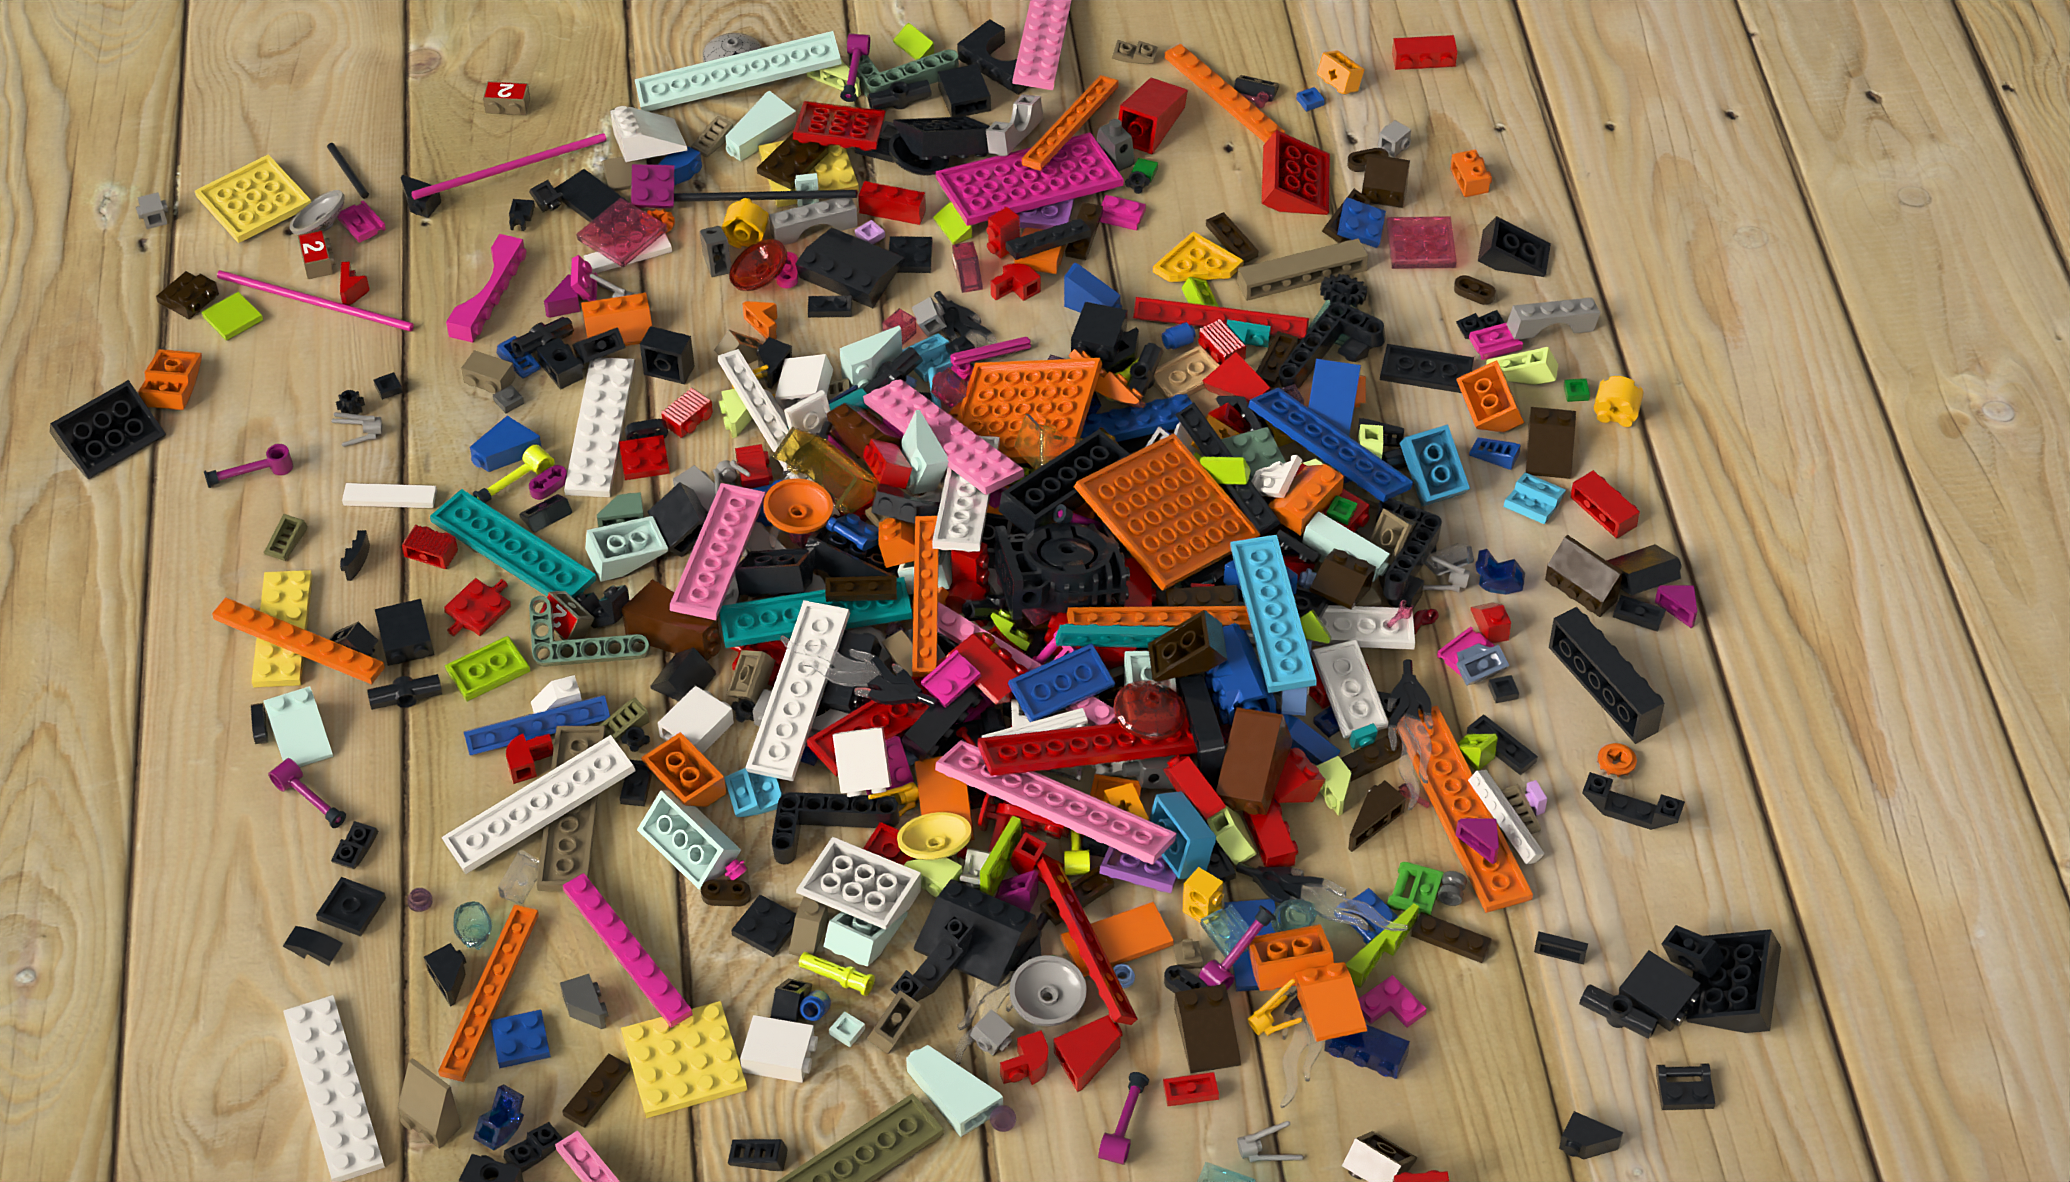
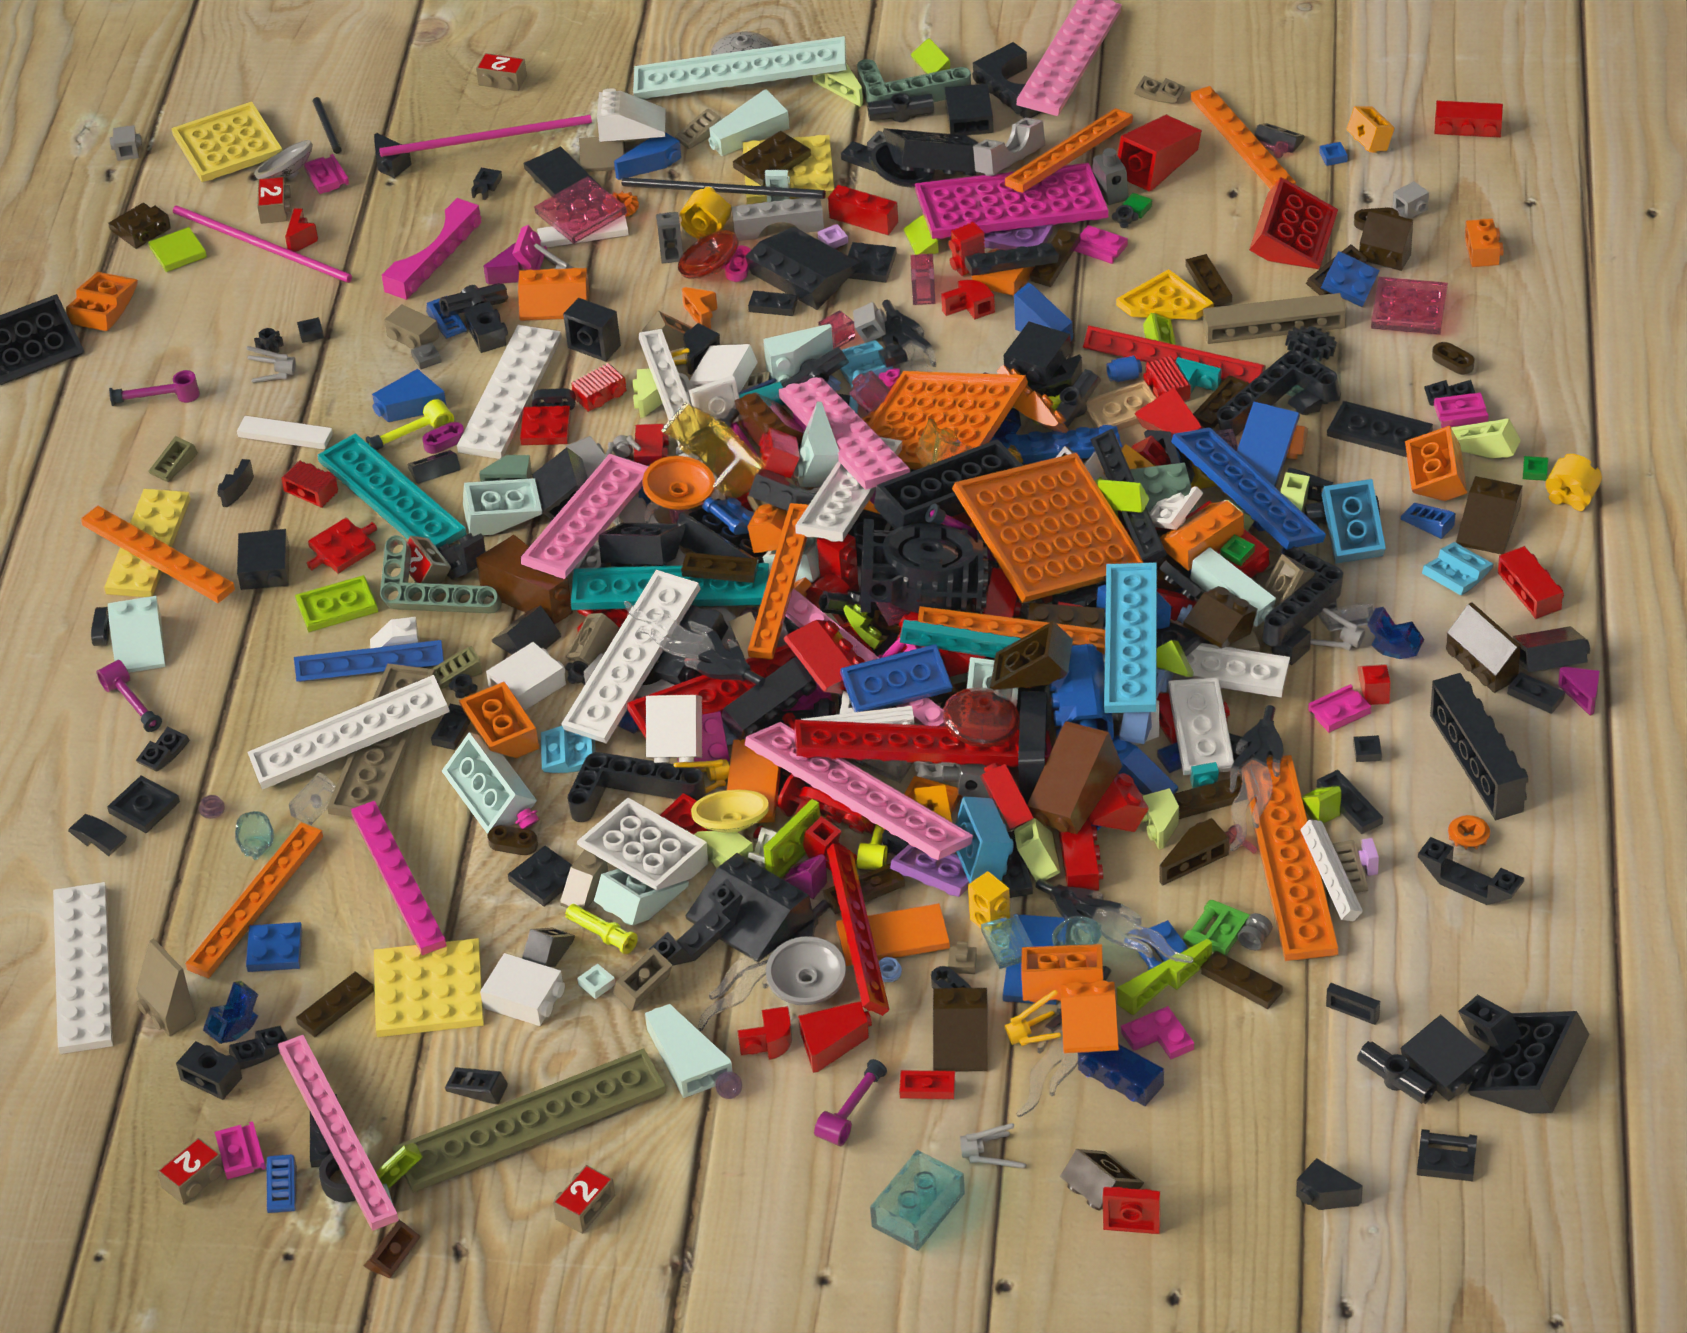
camera: 15 degrees right, 5 degrees down
(356, 637) = (215, 559): black slope -> none
(404, 692) = (248, 614): black piece -> none
(447, 971) = (219, 874): black slope -> none
(523, 753) = (346, 685): red brick -> none
(546, 196) = (515, 168): black bracket -> none
(583, 1002) = (343, 918): dark grey slope -> none
(599, 345) = (526, 313): black slope -> none
(652, 186) = (622, 168): magenta plate -> none
(815, 1005) = (569, 953): blue brick -> none
(839, 125) = (827, 129): red plate -> none
(857, 45) = (865, 53): magenta piece -> none
(950, 679) = (782, 660): dark pink plate -> none
(990, 351) = (923, 362): dark pink axle -> none
(992, 1033) = (739, 1003): light grey brick -> none
(1218, 973) = (988, 978): magenta piece -> none
(1403, 612) = (1278, 659): clear pink hand -> none
(1424, 617) = (1302, 670): dark red arm -> none
(1480, 663) = (1349, 720): sand blue slope -> none
(1480, 835) = (1295, 882): magenta slope -> none
(1513, 249) = (1506, 322): black slope -> none
(1529, 319) = (1500, 390): light grey arch -> none

